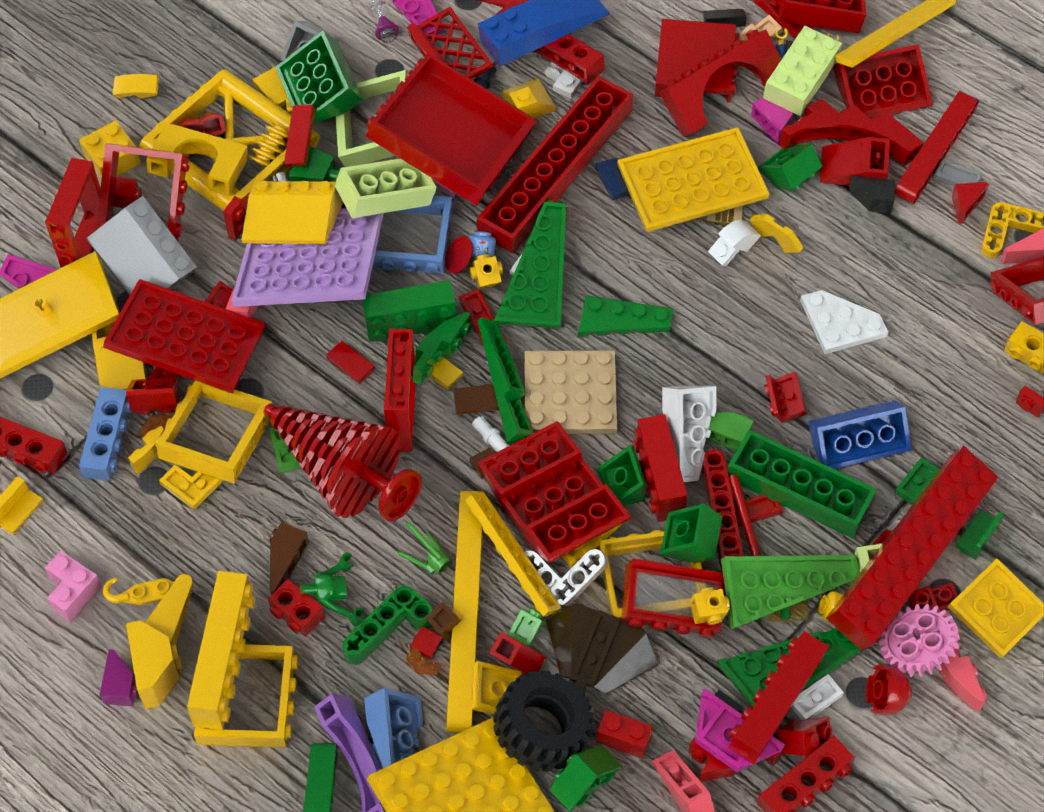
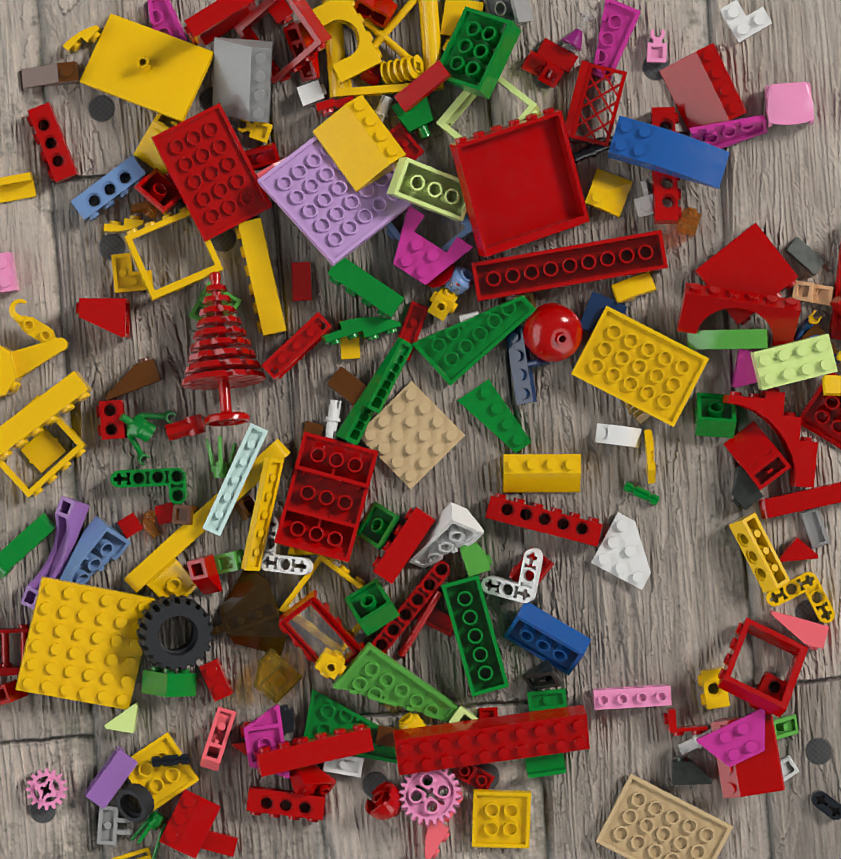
camera: 40 degrees right, 30 degrees up
(159, 191) = (298, 41): none -> red slope
(194, 286) = (258, 130): none -> yellow plate
(202, 524) = (107, 313): none -> red slope
(211, 225) = (311, 93): none -> white brick
(248, 173) = (372, 76): none -> red slope
(257, 696) = (43, 450): none -> yellow piece
(311, 383) = (261, 276): none -> yellow brick
(372, 551) = (188, 427): none -> red piece
(383, 63) = (542, 69): none -> red slope
(384, 49) = (557, 55): none -> red tile
(405, 681) = (130, 525): none -> red tile
(428, 251) = (421, 257): none -> dark pink wing
(459, 547) = (235, 479): none -> light aqua plate
(493, 571) = (245, 507): none -> reddish brown brick
(599, 213) = (553, 332): none -> red cylinder
(601, 262) = (522, 367): none -> plate
(615, 65) = (689, 222): none -> clear orange brick
(622, 139) = (633, 287): none -> yellow slope
(673, 677) = (275, 676): none -> clear yellow slope
(707, 320) = (541, 472): none -> yellow slope
(736, 104) = (728, 339): none -> bright green slope
(782, 342) = (590, 537): none -> red brick
(792, 404) = (523, 584): none -> white beam
(801, 268) = (641, 493): none -> green axle
(825, 632) = (385, 736): none -> reddish brown tile
(894, 463) = (542, 677): none -> pearl dark grey slope
(936, 212) = (759, 552): none -> yellow brick
(980, 412) = (631, 696): none -> bright pink brick

